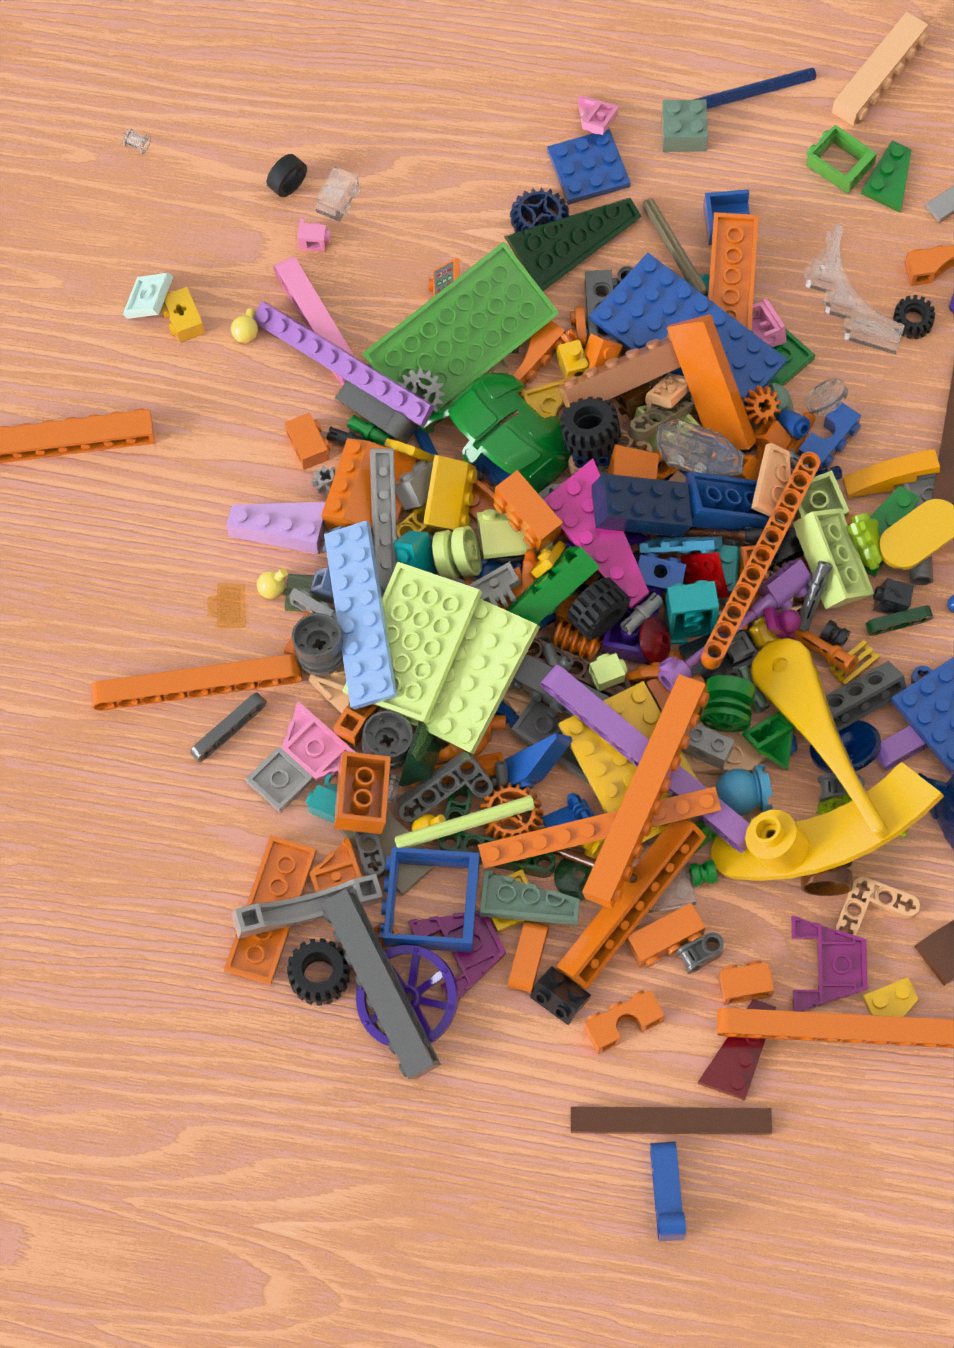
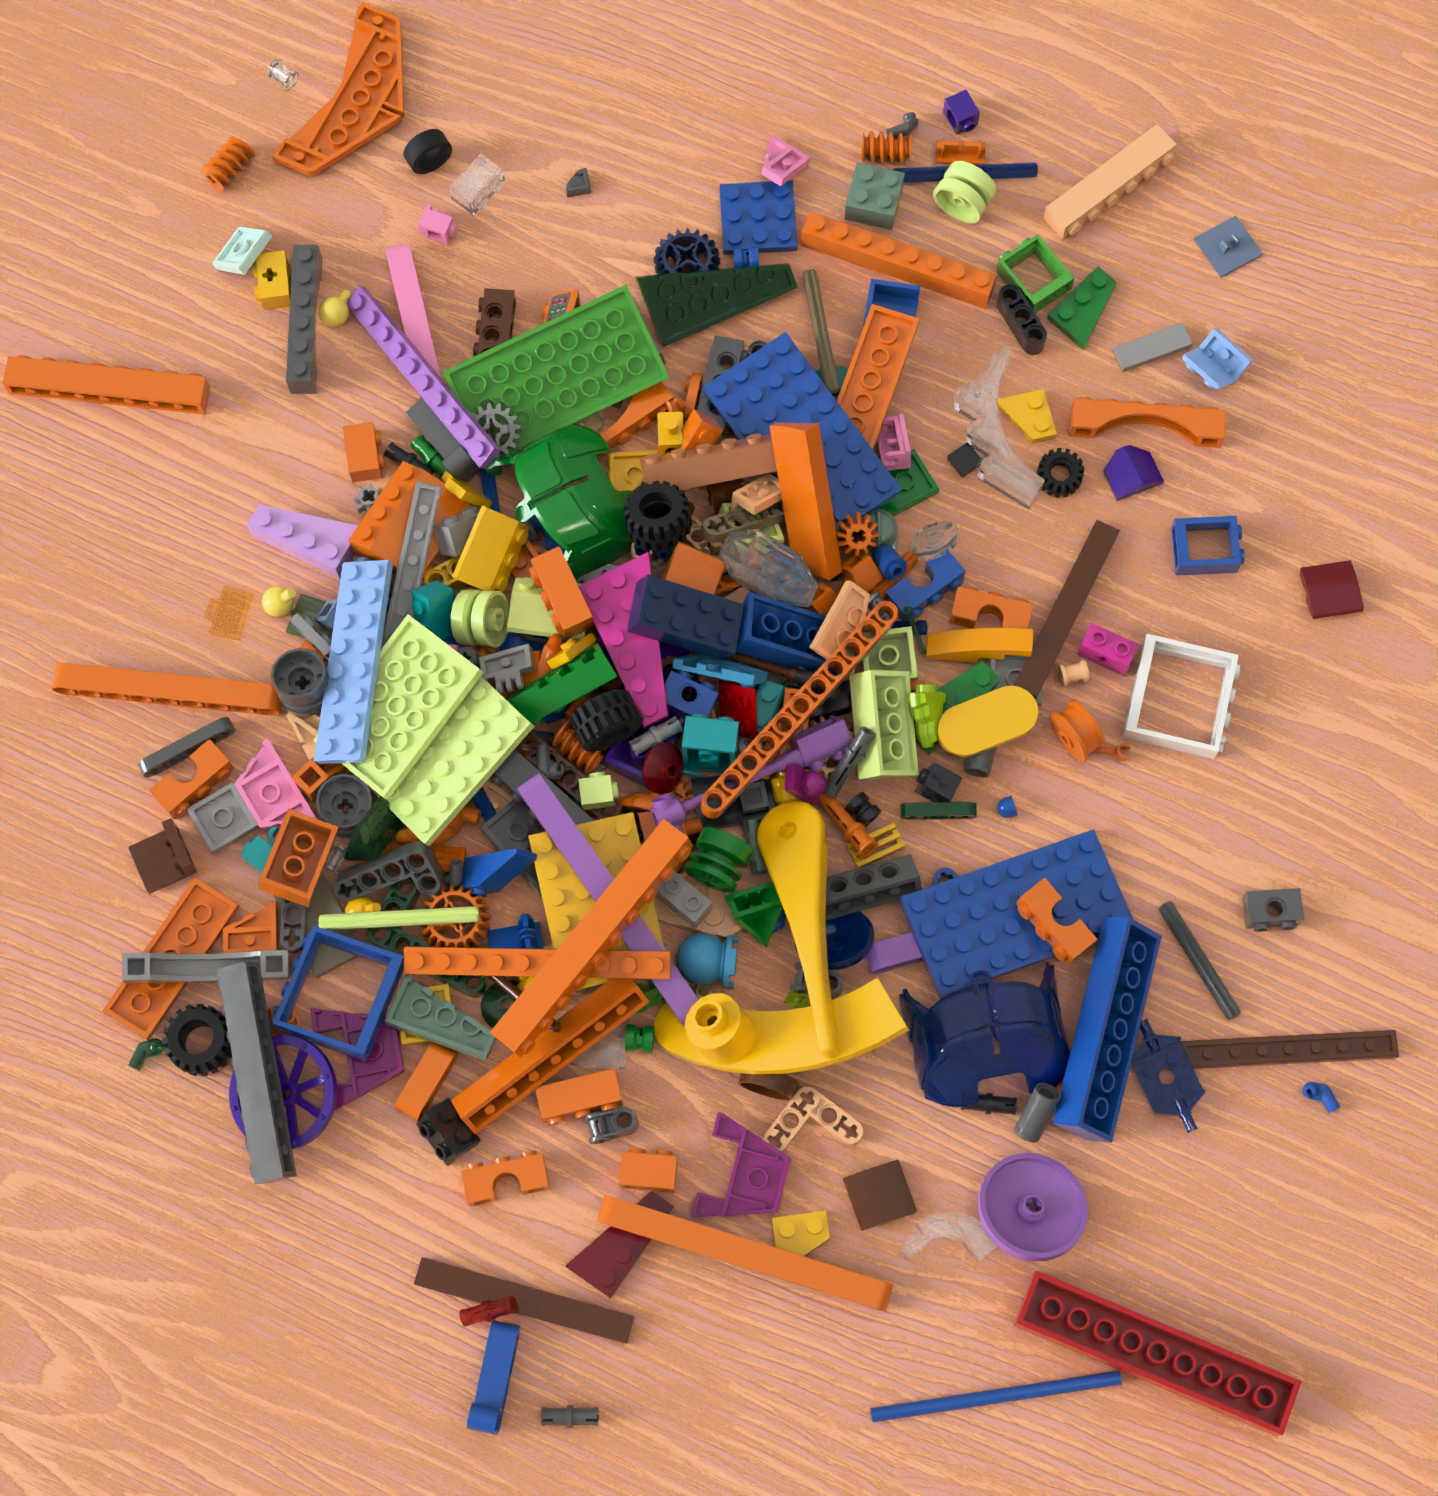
camera: 15 degrees right, 5 degrees up
(111, 225) = (225, 162): none -> orange piece
(216, 147) = (361, 104): none -> orange wing
(221, 341) = (301, 354): none -> dark grey arch
(233, 771) = (178, 796): none -> orange arch
(237, 825) = (162, 858): none -> reddish brown bracket
(272, 994) = (145, 1050): none -> clear green arm
(384, 289) = (500, 303): none -> reddish brown brick
(425, 174) = (578, 184): none -> dark grey tile
(591, 201) = (740, 257): none -> blue wheel
(644, 1136) = (495, 1309): none -> clear red pin
(682, 83) = (886, 147): none -> orange piece
(691, 65) = (905, 128): none -> dark grey arm
(721, 173) = (898, 259): none -> orange brick
(736, 40) = (961, 112): none -> dark purple brick
(742, 1207) = (569, 1416): none -> dark grey pin
(745, 73) = (967, 151): none -> orange hinge
(761, 104) = (964, 192): none -> yellowish green wheel
(824, 460) = (908, 610): none -> clear green hinge
(828, 325) = (964, 459): none -> black tile
(839, 189) = (1021, 308): none -> black beam
(872, 442) = (971, 603): none -> orange arch
(873, 275) = (1030, 414): none -> yellow wing

